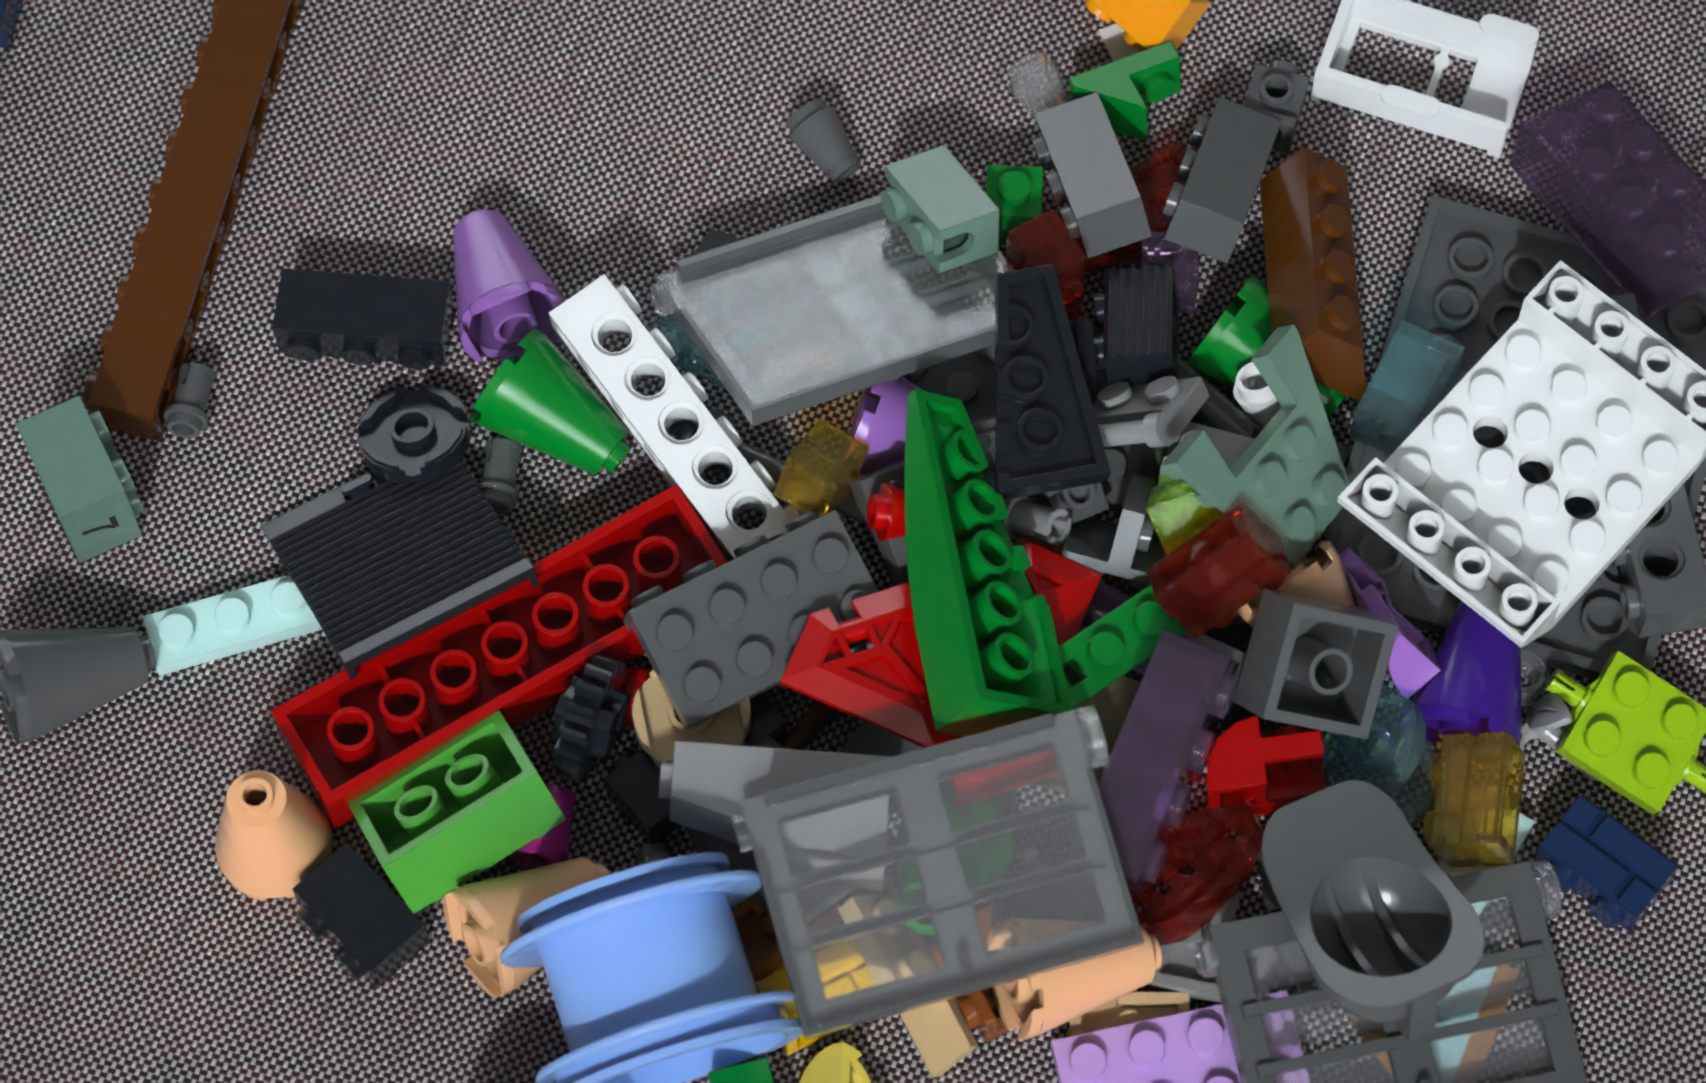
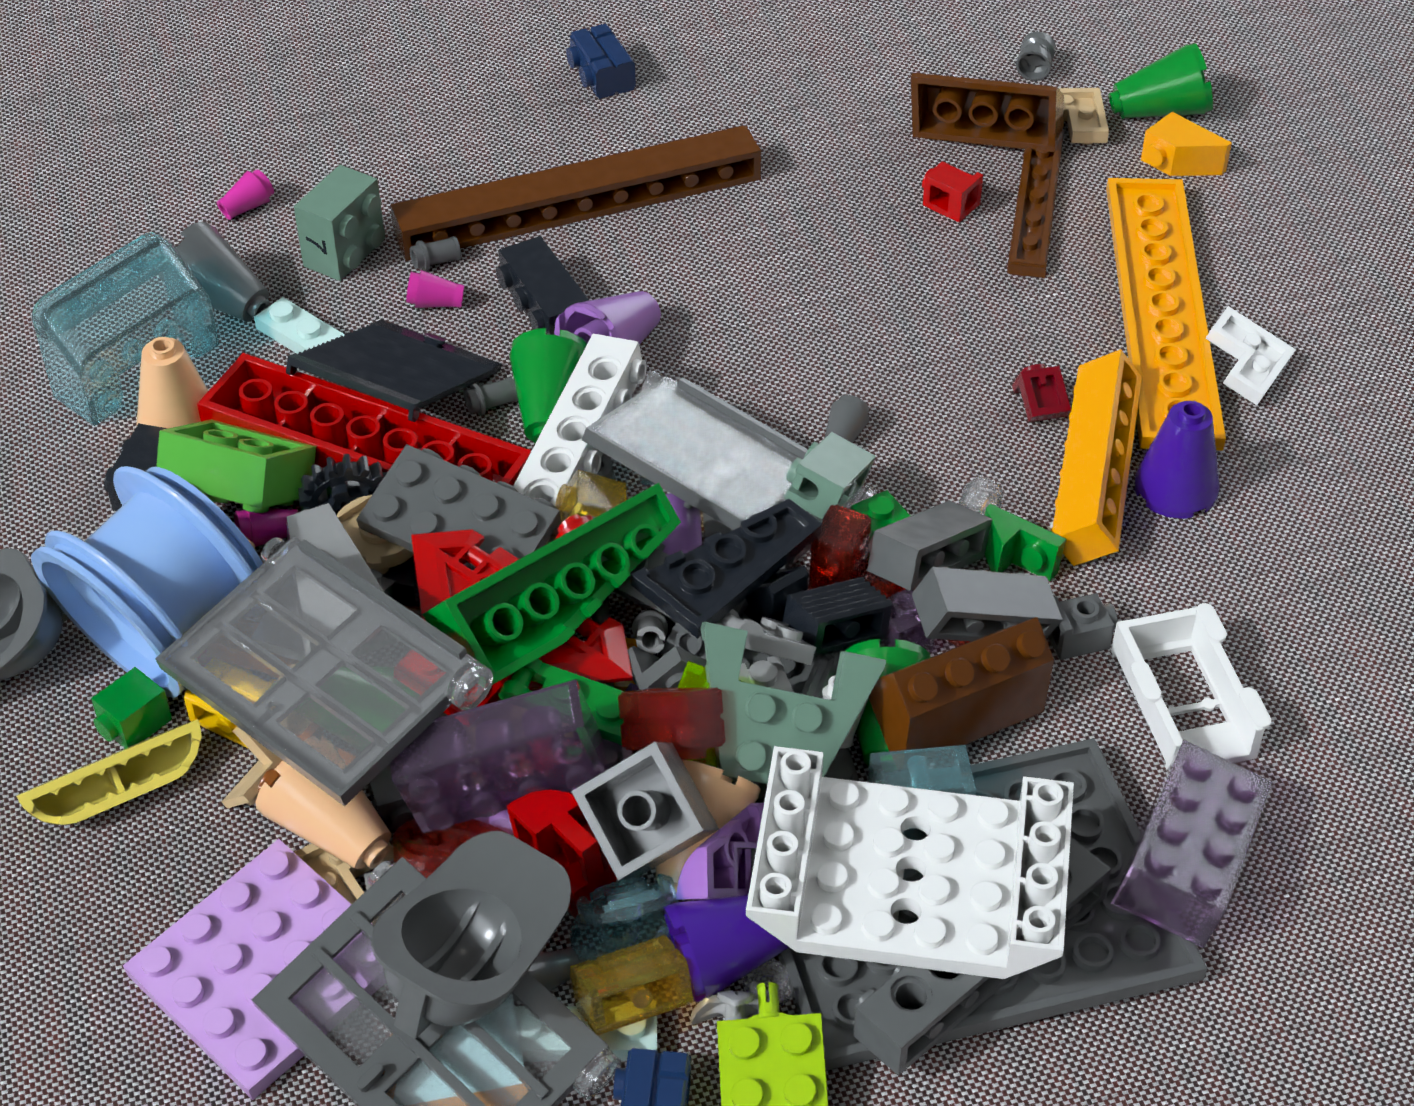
camera: 55 degrees right, 20 degrees down
(119, 825) = (109, 312): none -> clear light blue windscreen
(262, 443) = (432, 291): none -> dark pink cone
(414, 434) = (482, 345): black tile -> none

